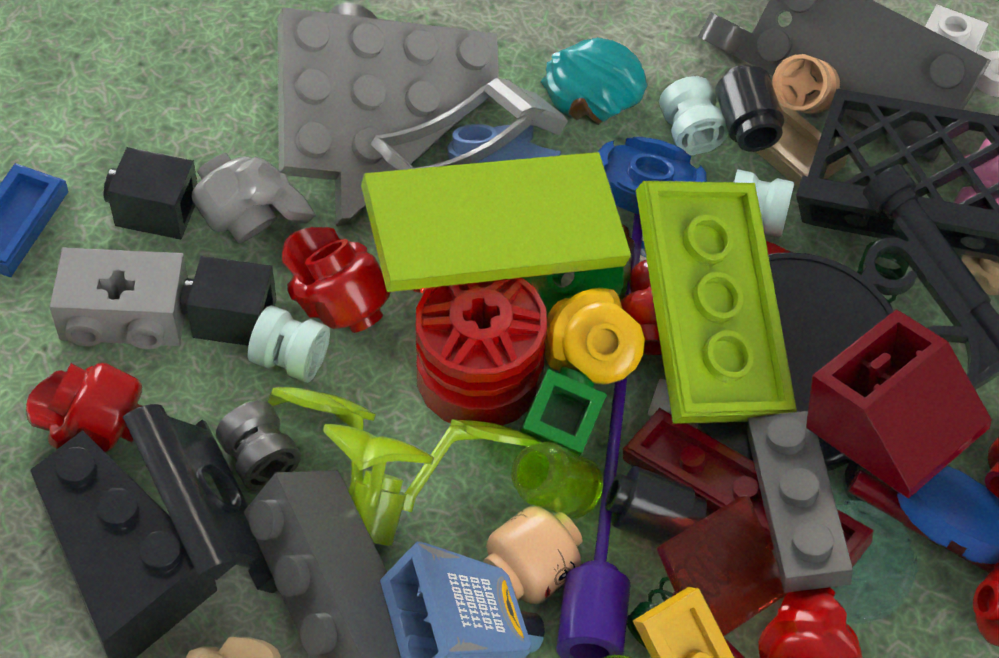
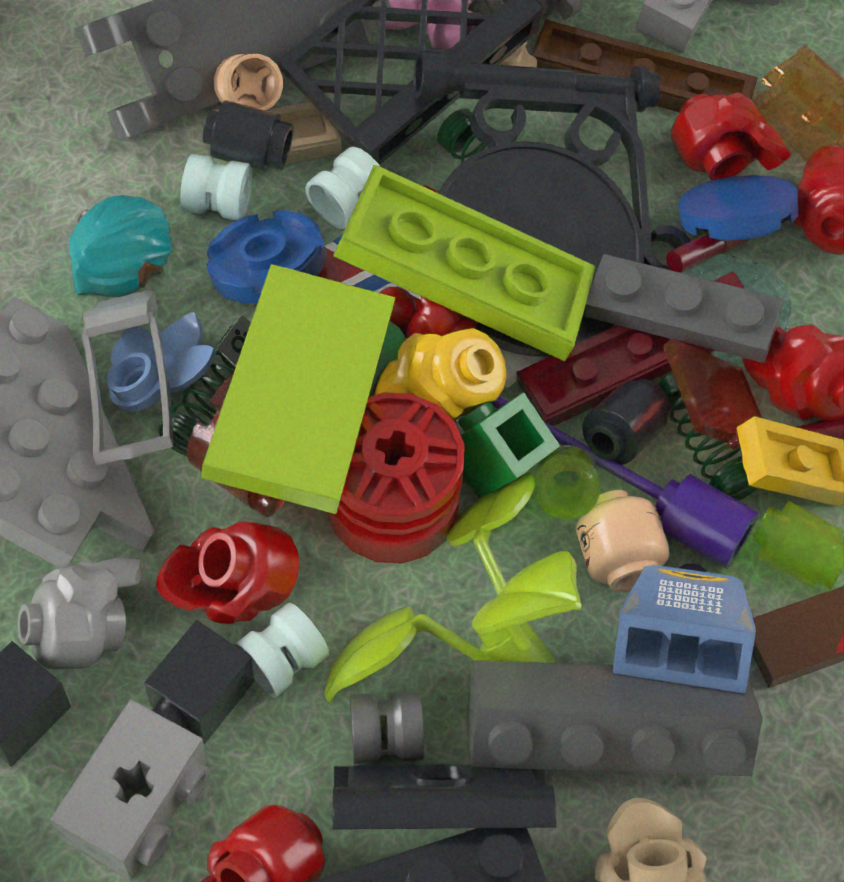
camera: 65 degrees left, 5 degrees up
(897, 404) = (651, 184): dark red slope -> none

